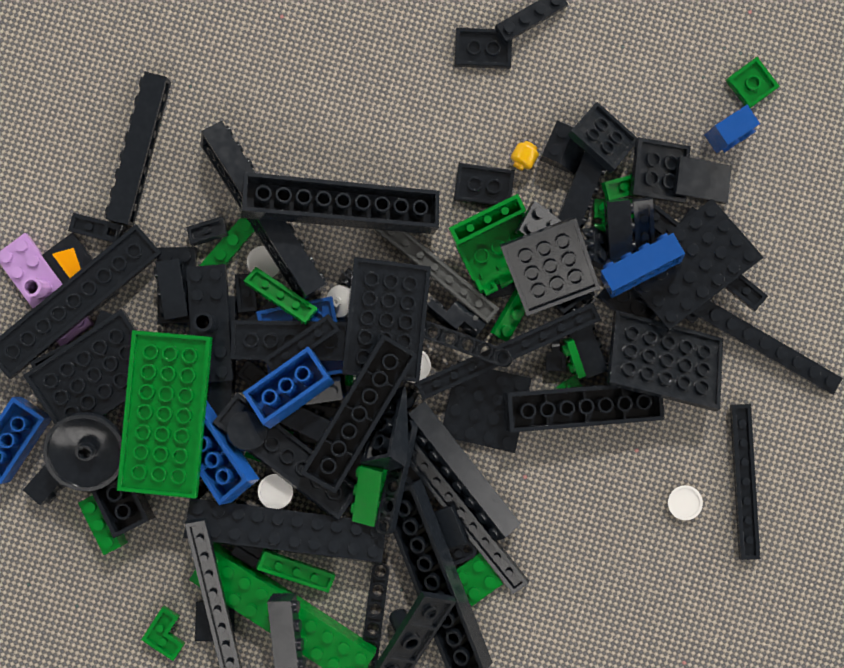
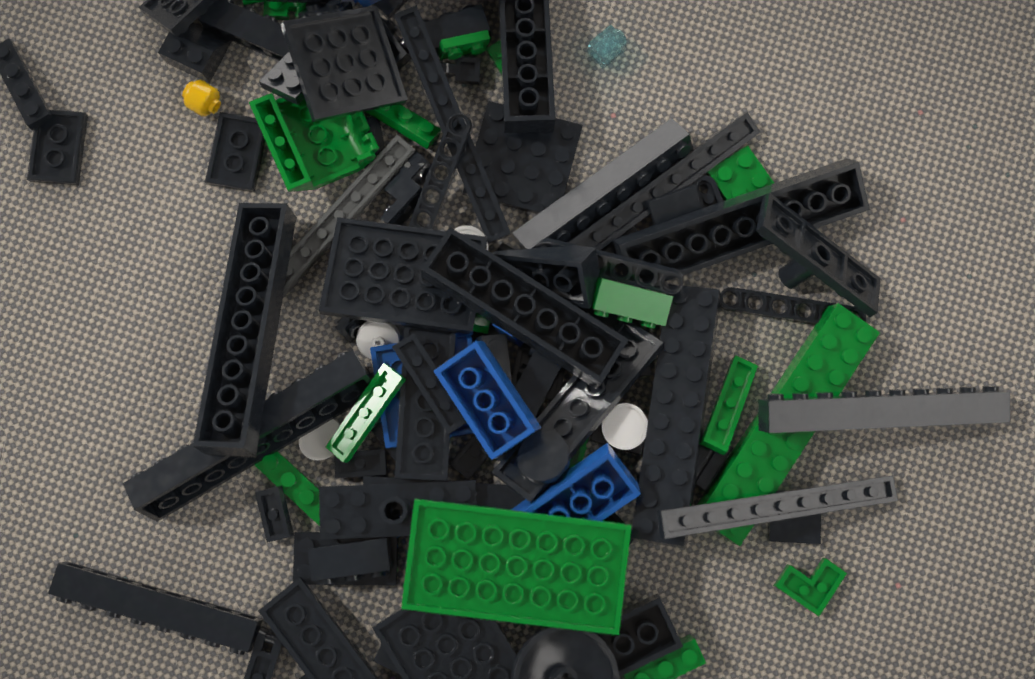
camera: 90 degrees left, 5 degrees down
(579, 471) = (607, 46): none -> clear light blue brick

